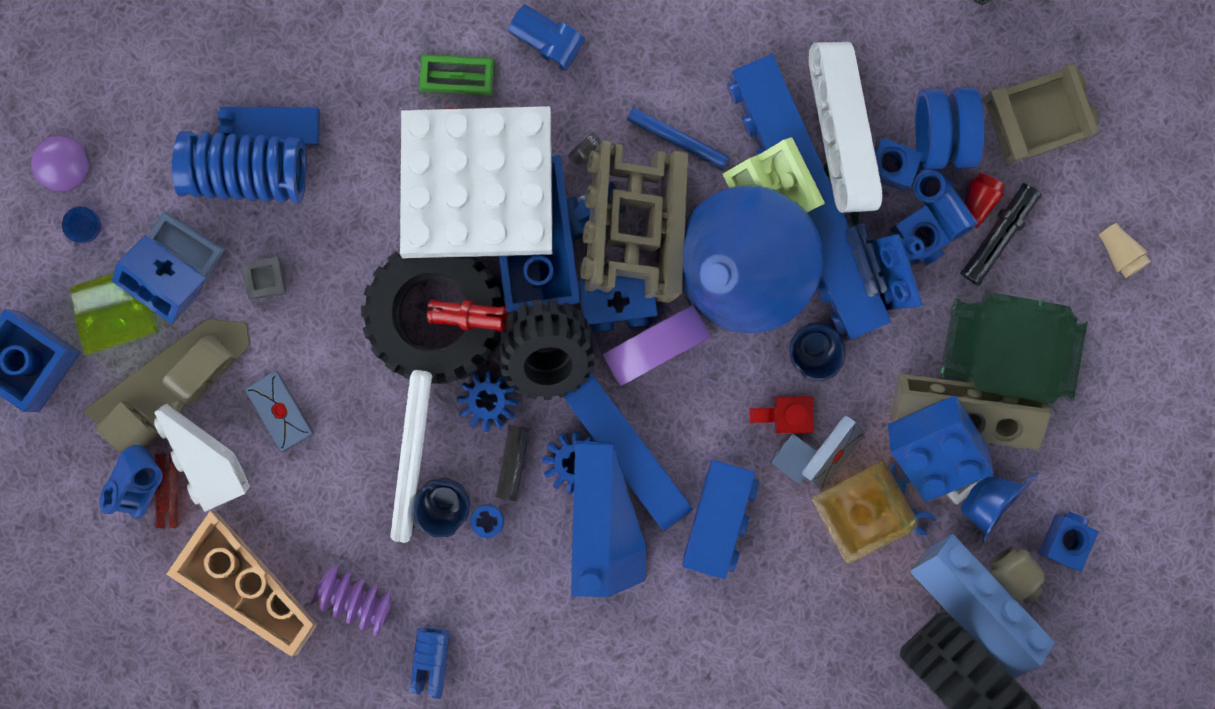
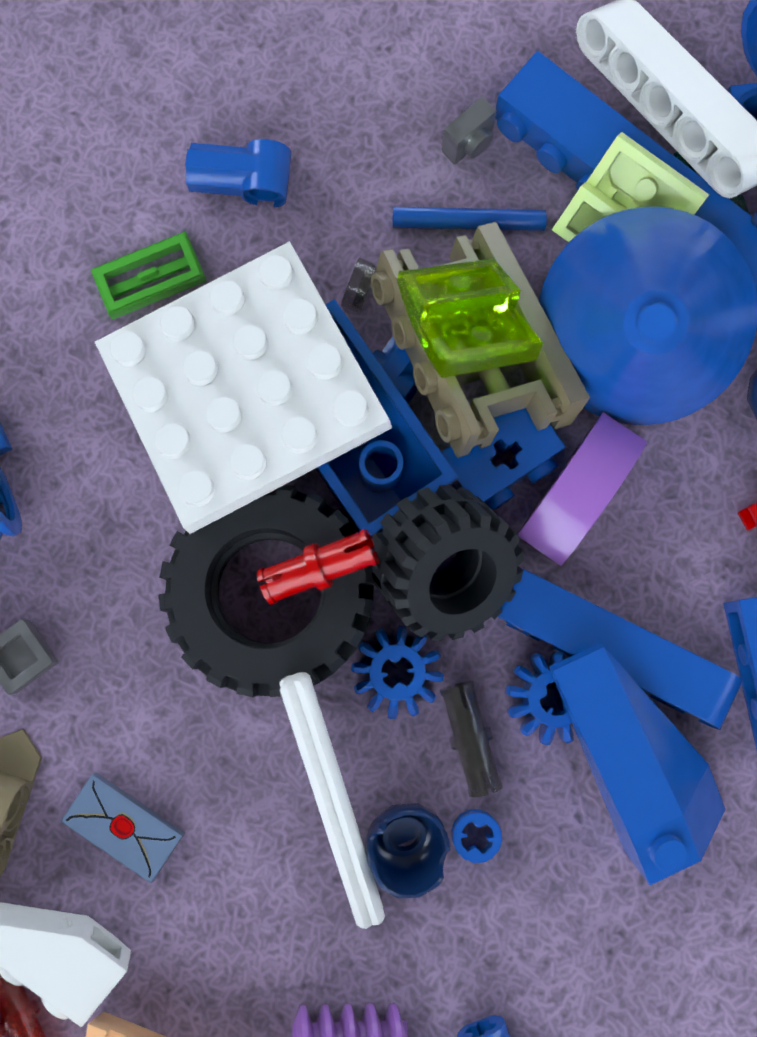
camera: 25 degrees left, 5 degrees down
(632, 208) = (467, 317): none -> clear neon green slope
(705, 84) = (469, 132): none -> flat silver plate

